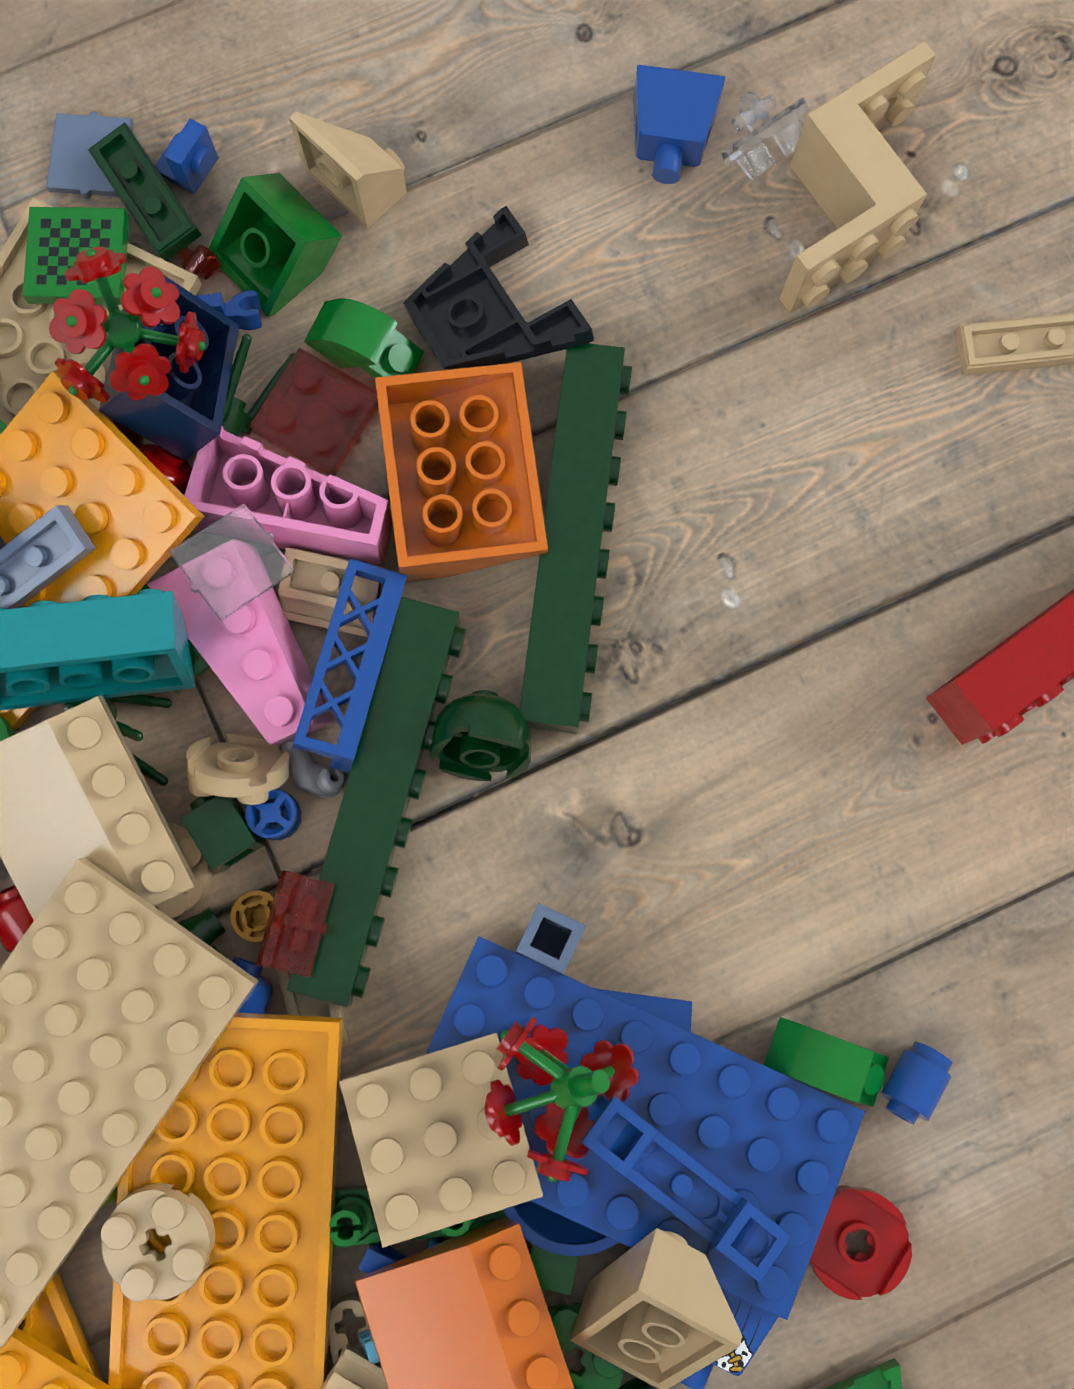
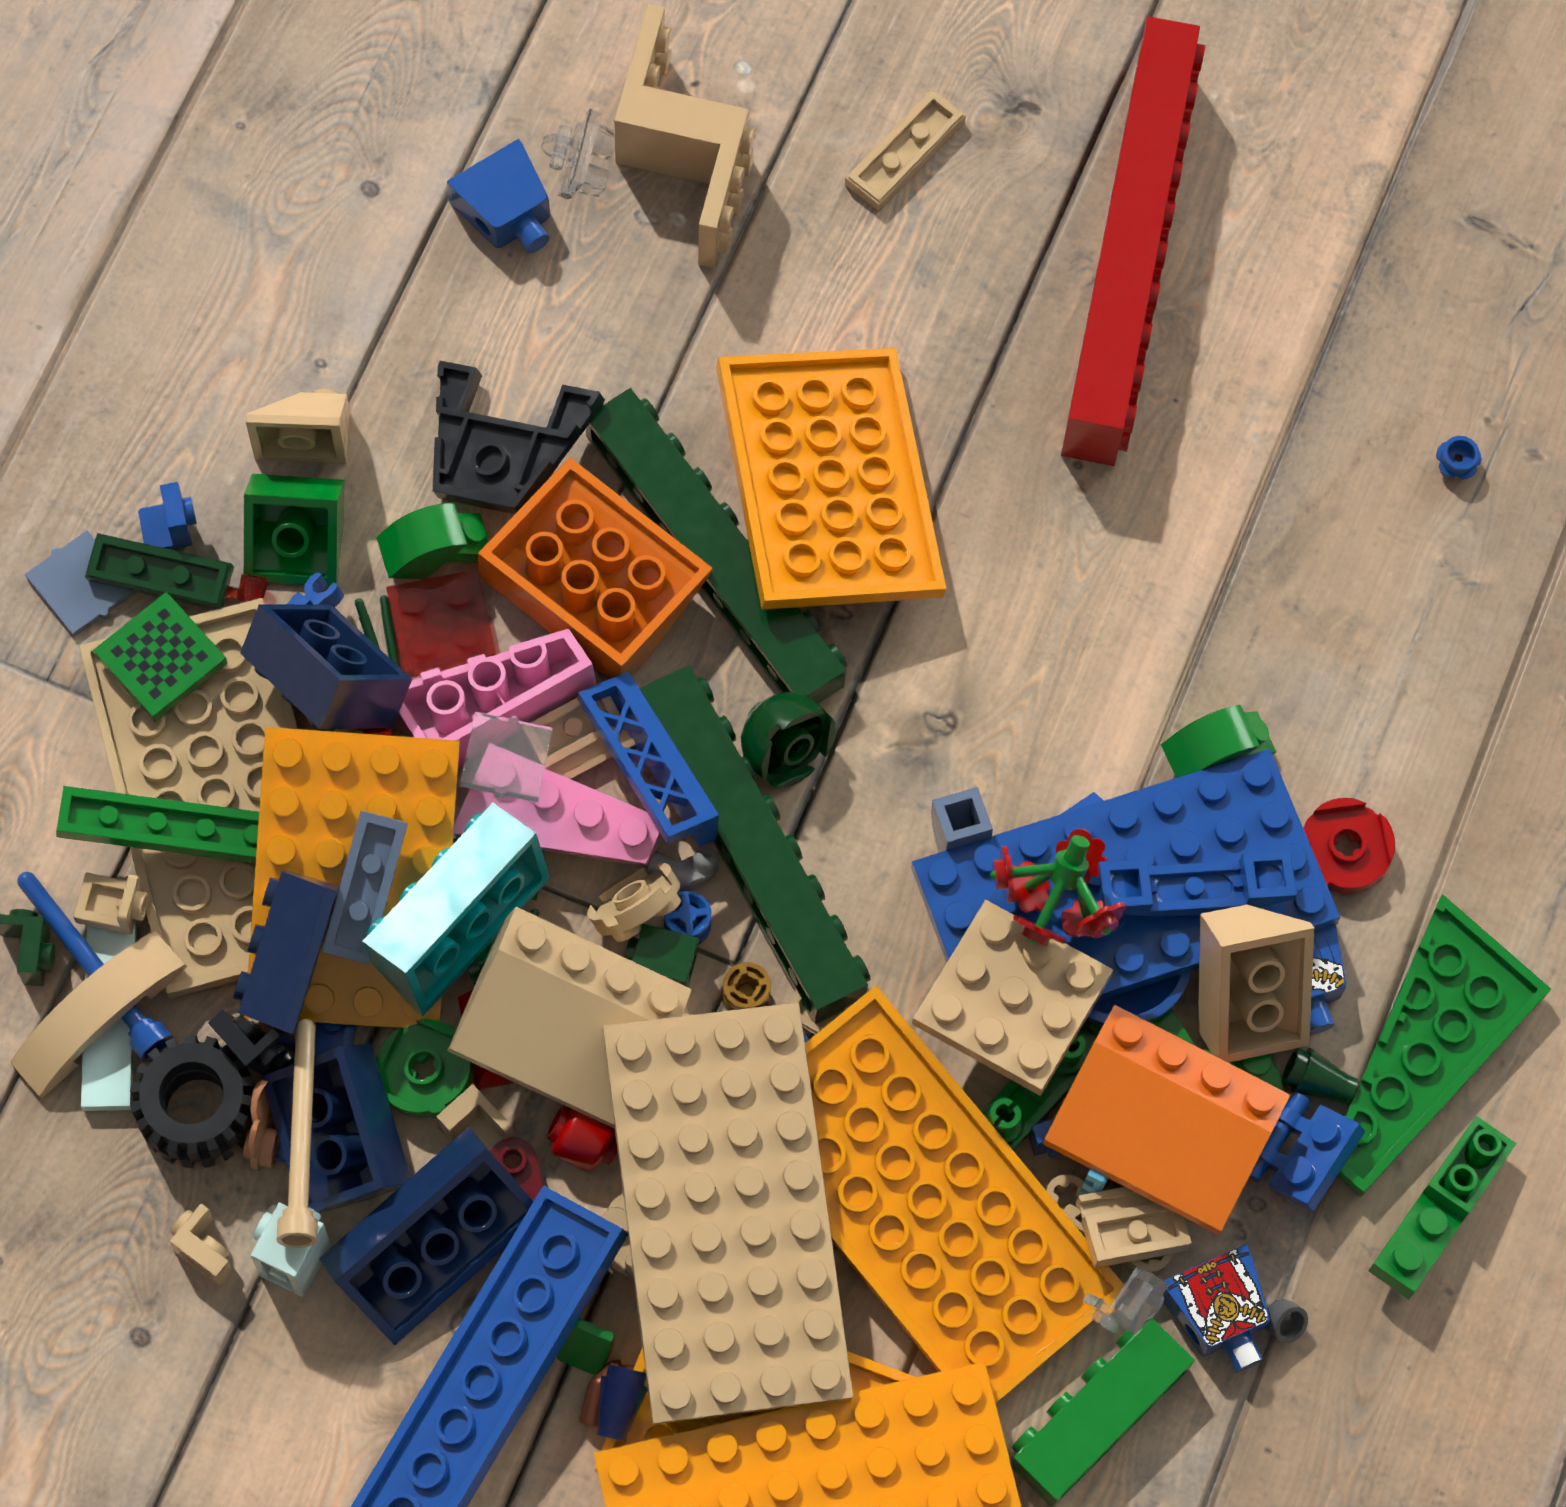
camera: 45 degrees left, 10 degrees down
(87, 325) = (290, 658): red plant -> none
(135, 1265) = (863, 1247): tan plate -> none
(295, 924) = (784, 955): clear red hips -> none
(713, 558) = (829, 478): none -> light orange plate
(917, 1083) = (1289, 709): blue brick -> none

